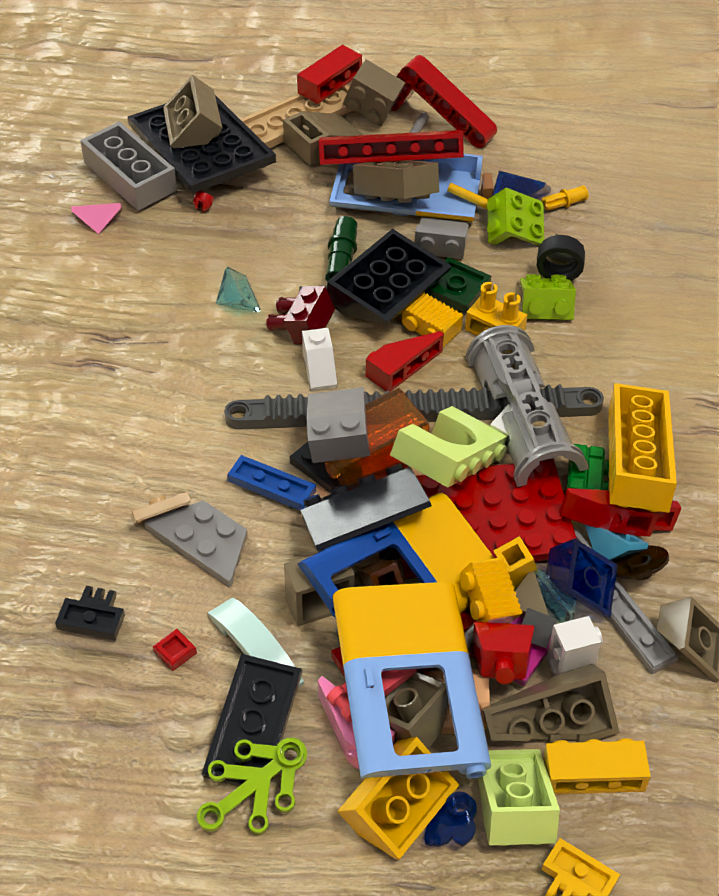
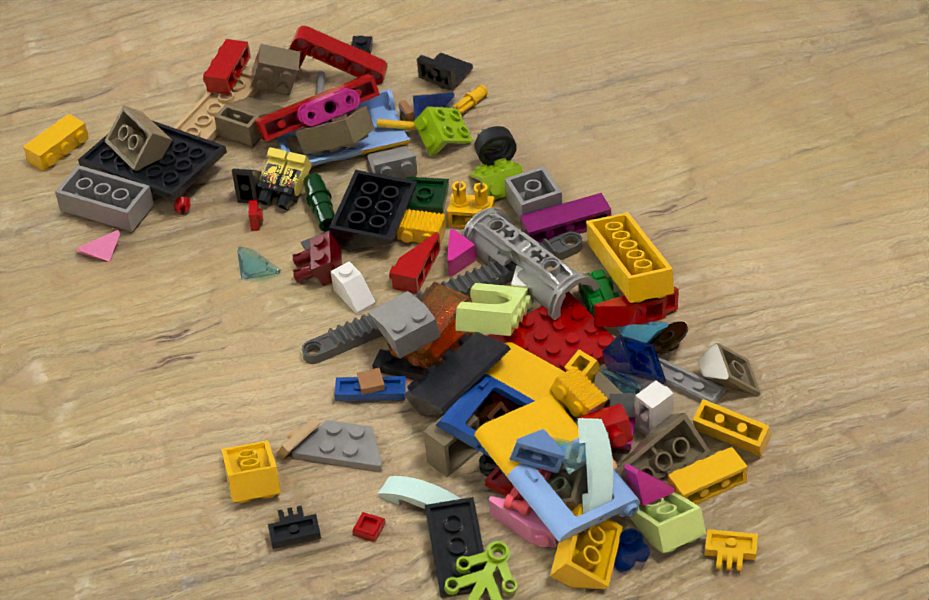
camera: 20 degrees left, 5 degrees down
(87, 526) = (251, 471): none -> yellow slope
(122, 92) = (56, 142): none -> yellow brick
(266, 239) = (255, 215): none -> red plate
(273, 475) = (370, 381): none -> medium nougat tile
(277, 204) = (246, 184): none -> black slope
(316, 210) = (283, 177): none -> hips
(389, 651) = (538, 451): none -> medium blue slope
(412, 153) = (339, 107): none -> dark pink piece
(436, 671) = (574, 454): none -> clear light blue slope
(455, 697) = (598, 462): none -> light aqua slope
(456, 364) = (460, 252): none -> dark pink slope
(485, 100) = (363, 43): none -> black plate
(513, 746) = (646, 486): none -> dark pink slope
(553, 157) = (443, 70): none -> black bracket
(573, 329) = (532, 191): none -> light grey brick
(595, 369) = (564, 217): none -> magenta brick
(658, 714) = (732, 427): none -> yellow brick

